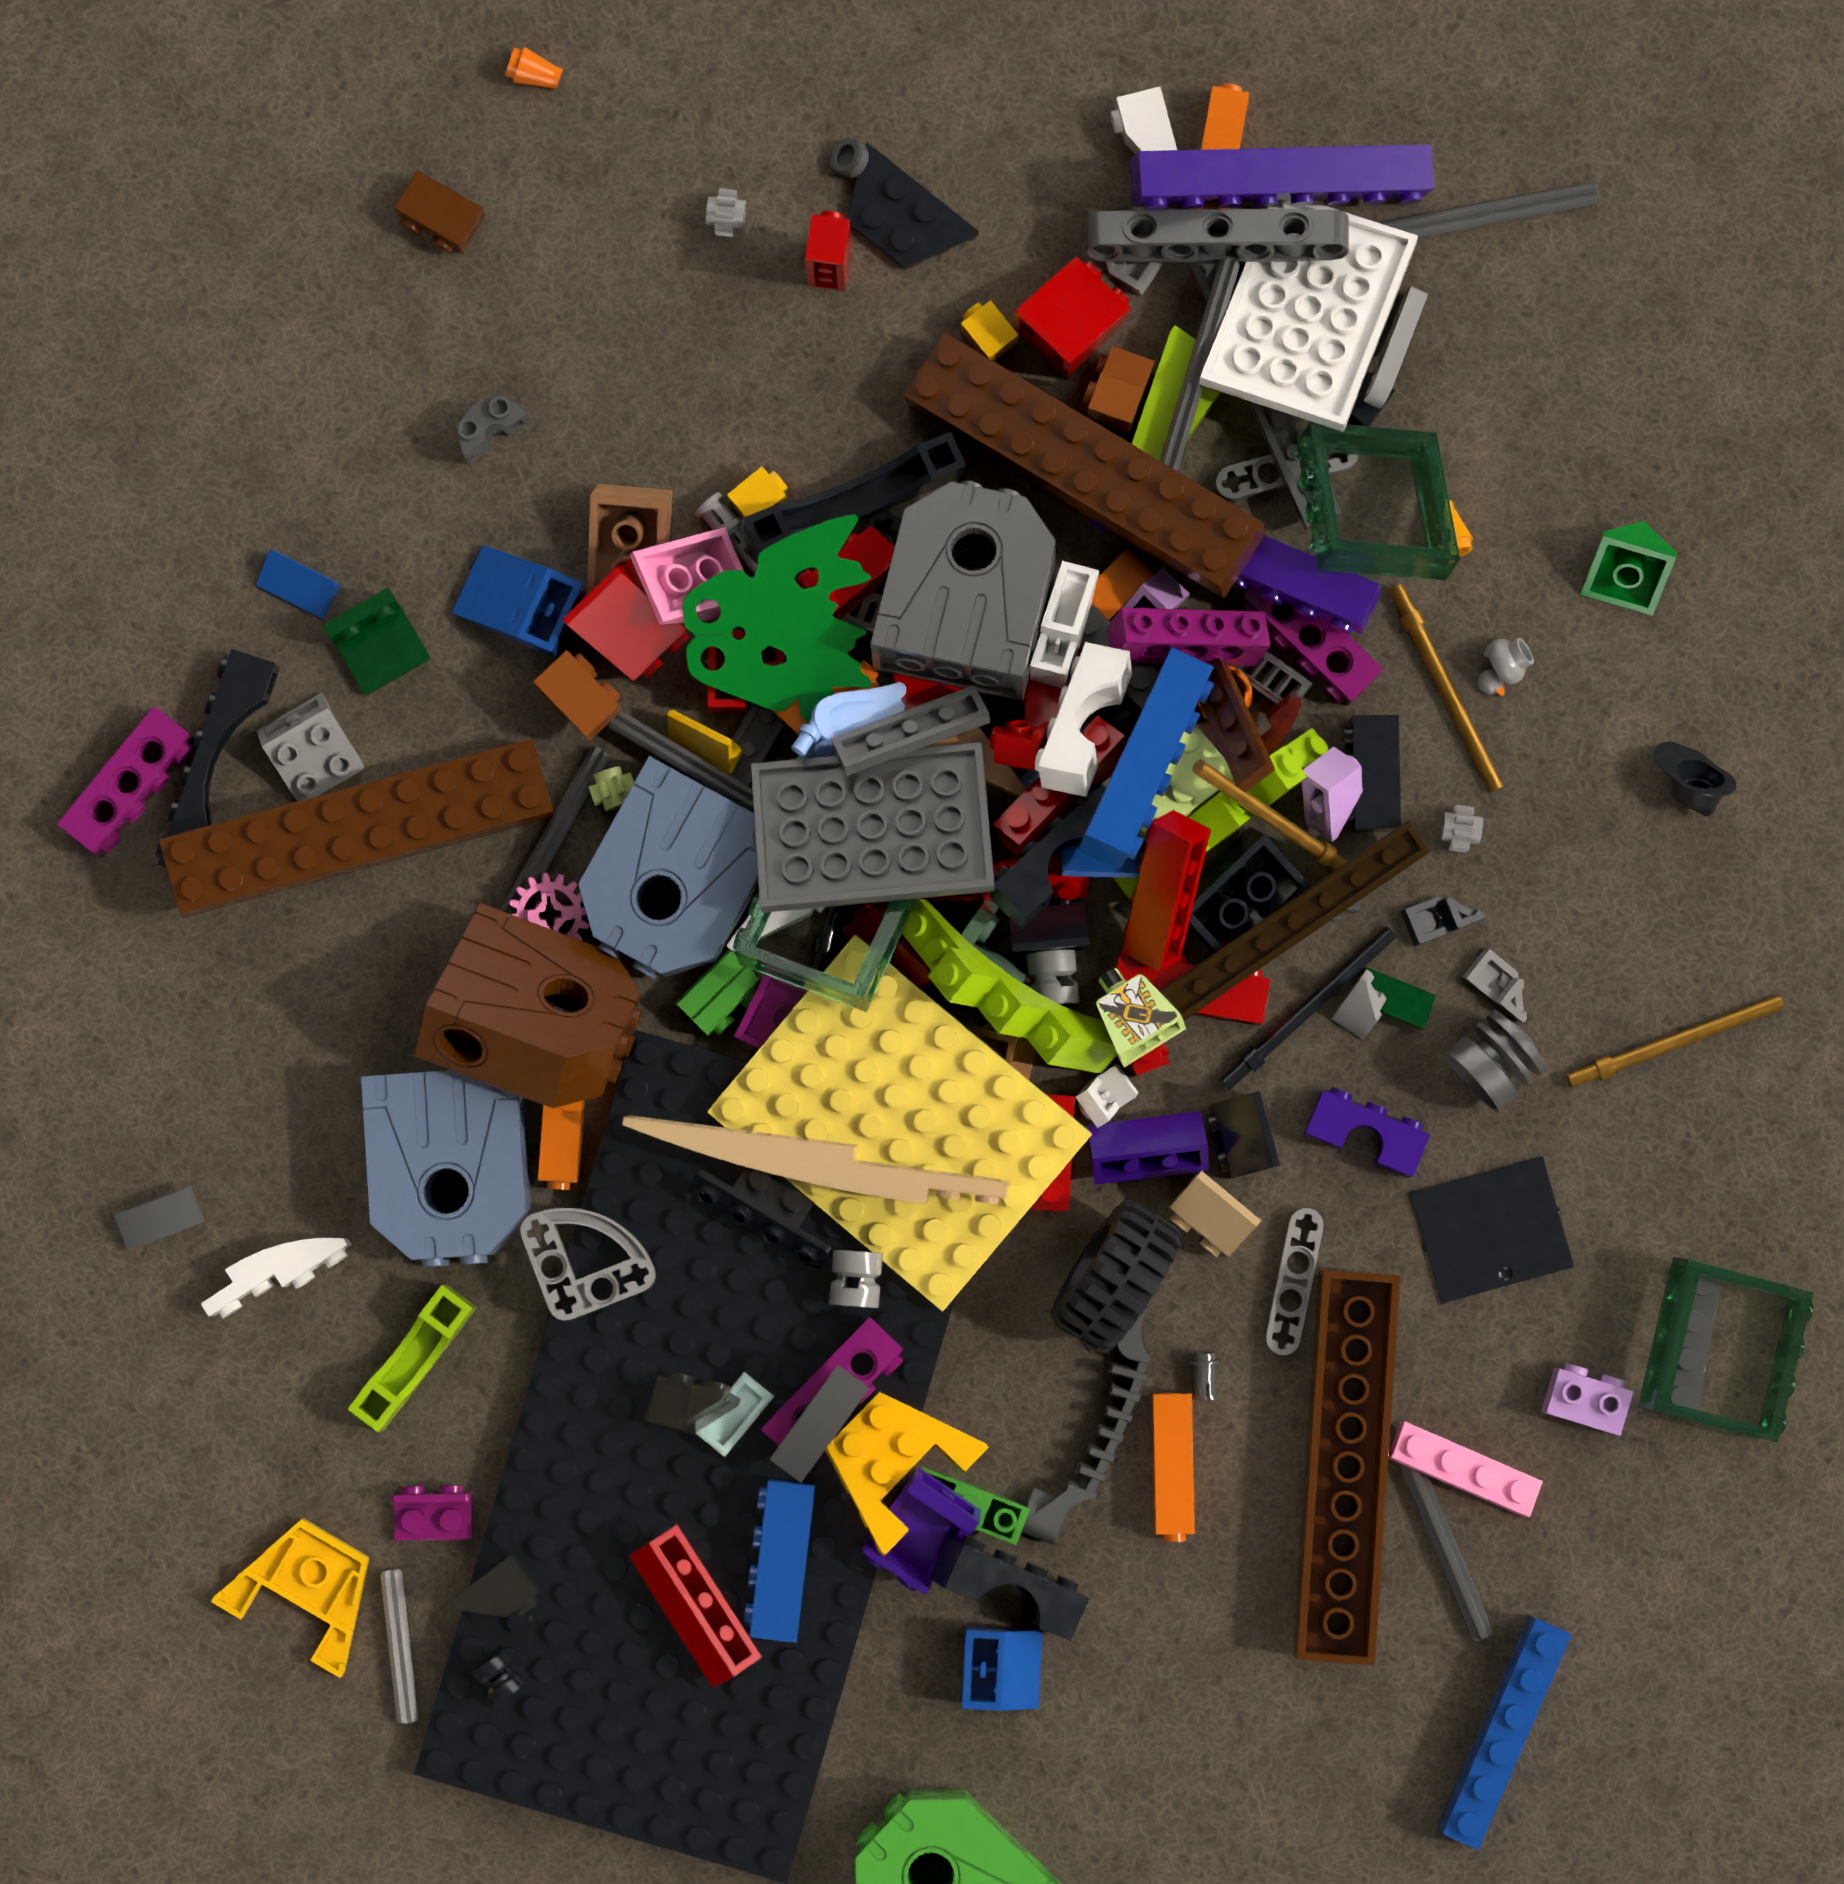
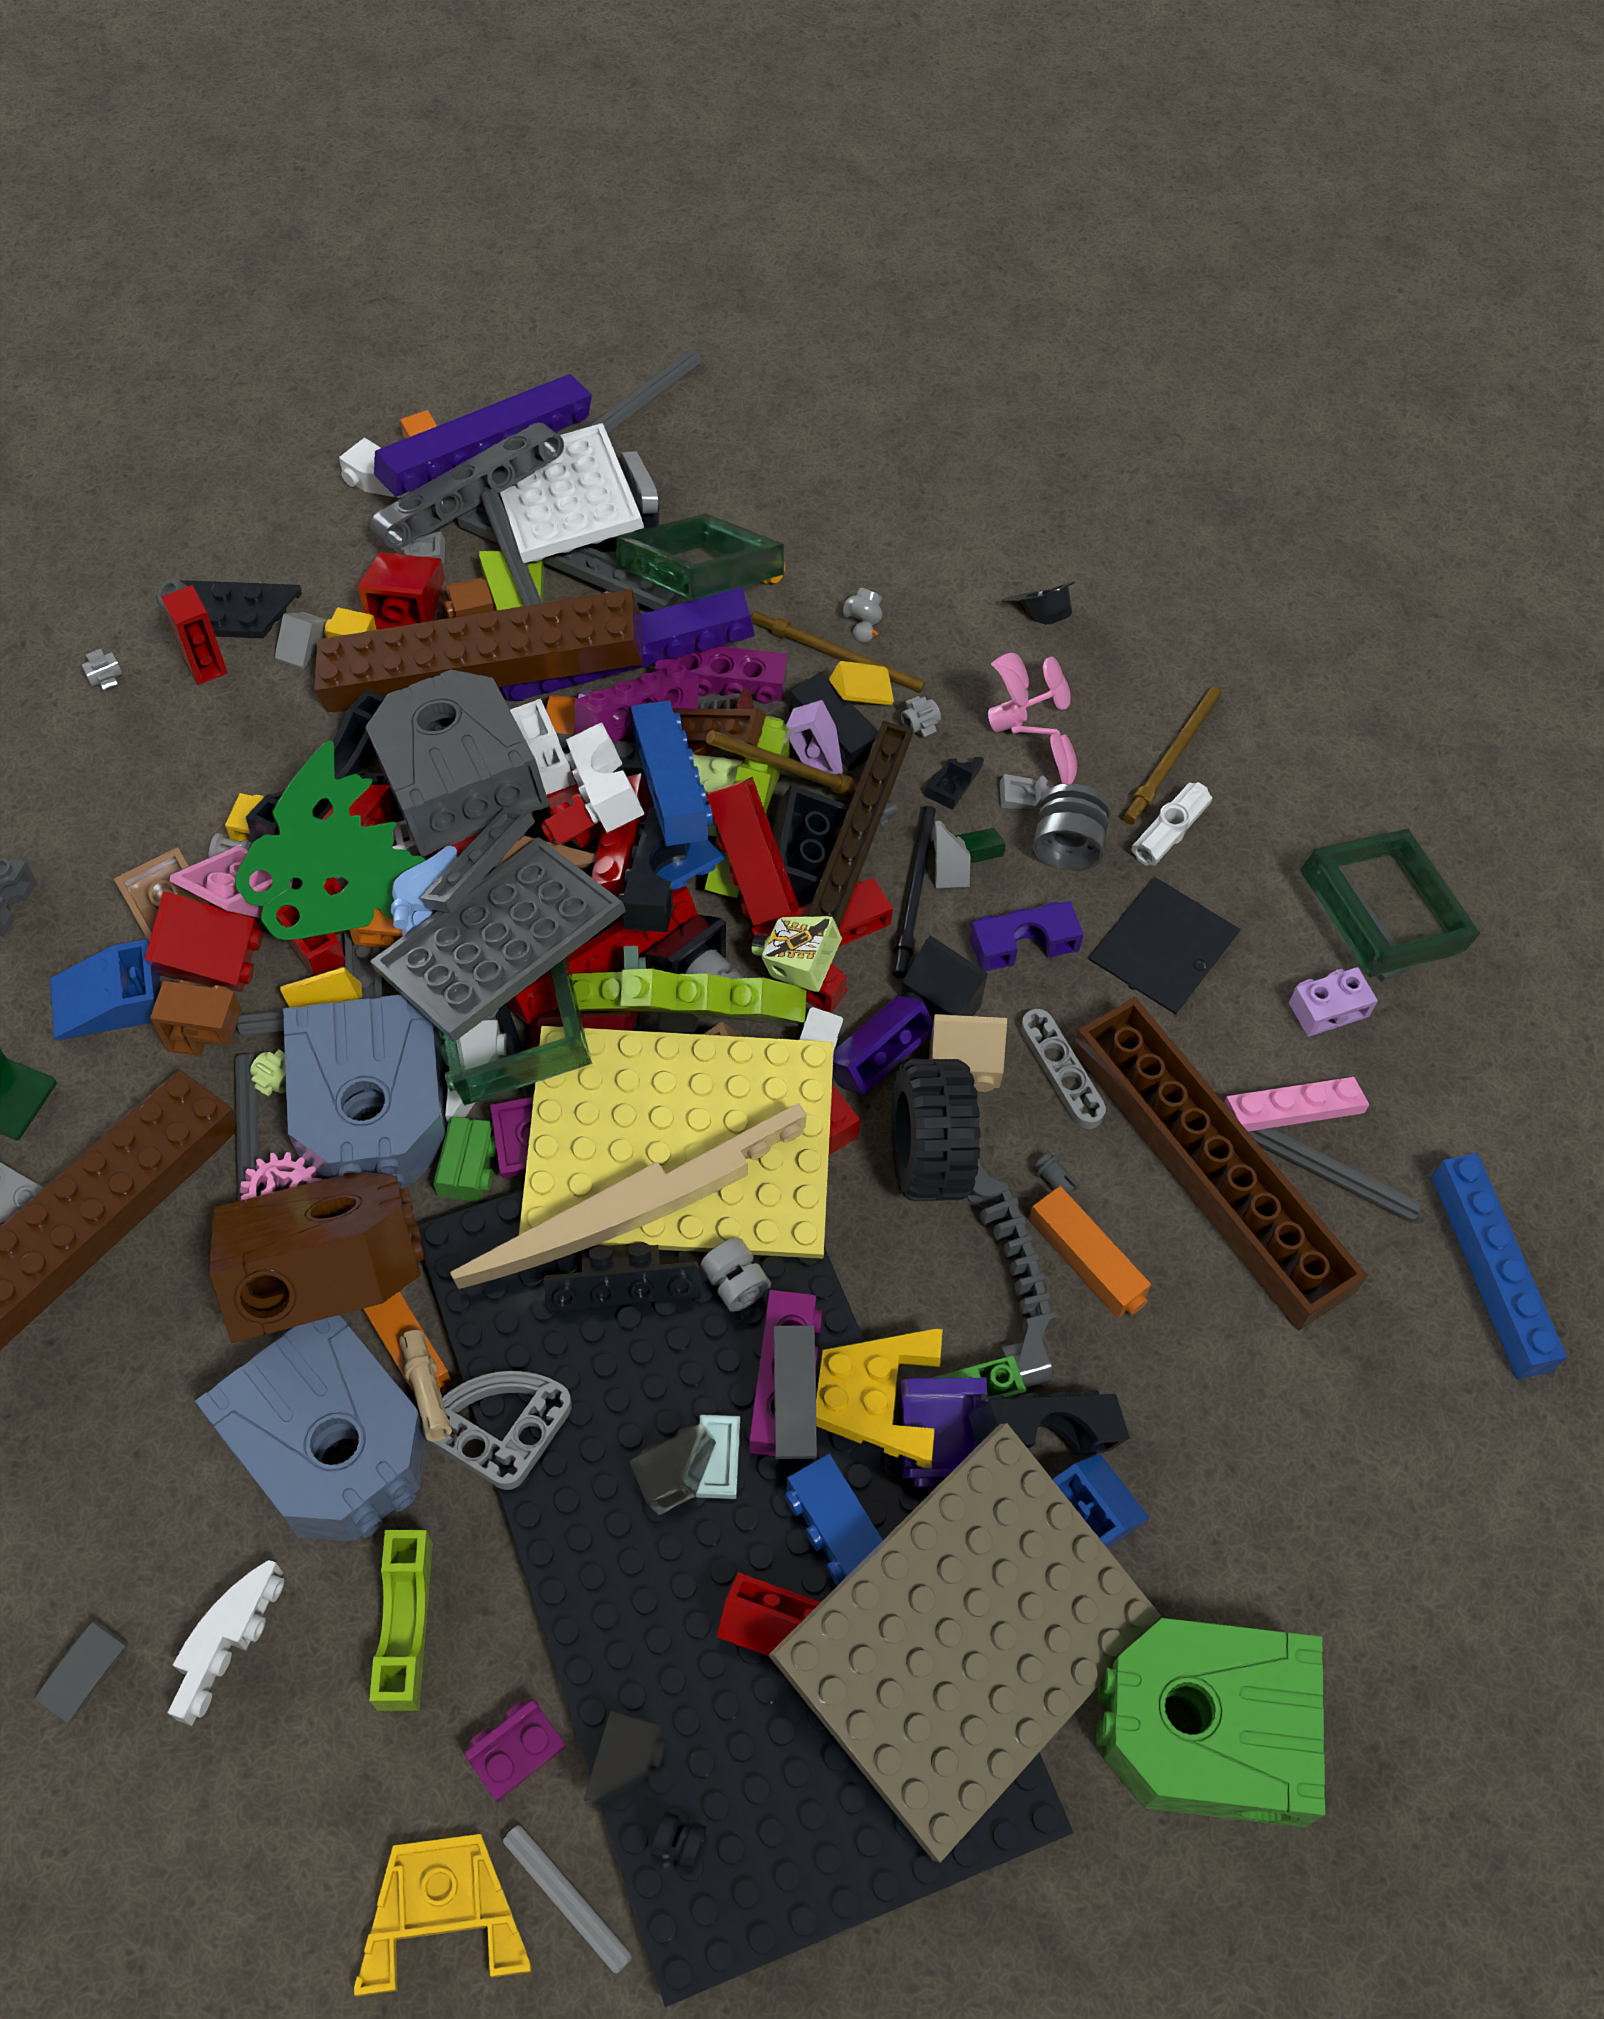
camera: 40 degrees left, 25 degrees down
(551, 1175) = (421, 1372): none -> tan pin
(810, 1703) = (965, 1640): none -> dark tan plate
(940, 299) = (299, 638): none -> light grey slope
(1431, 755) = (862, 683): none -> yellow slope
(1549, 888) = (1013, 713): none -> bright pink plant
(1625, 1113) = (1171, 824): none -> white piece
(1630, 568) = (896, 515): green slope -> none

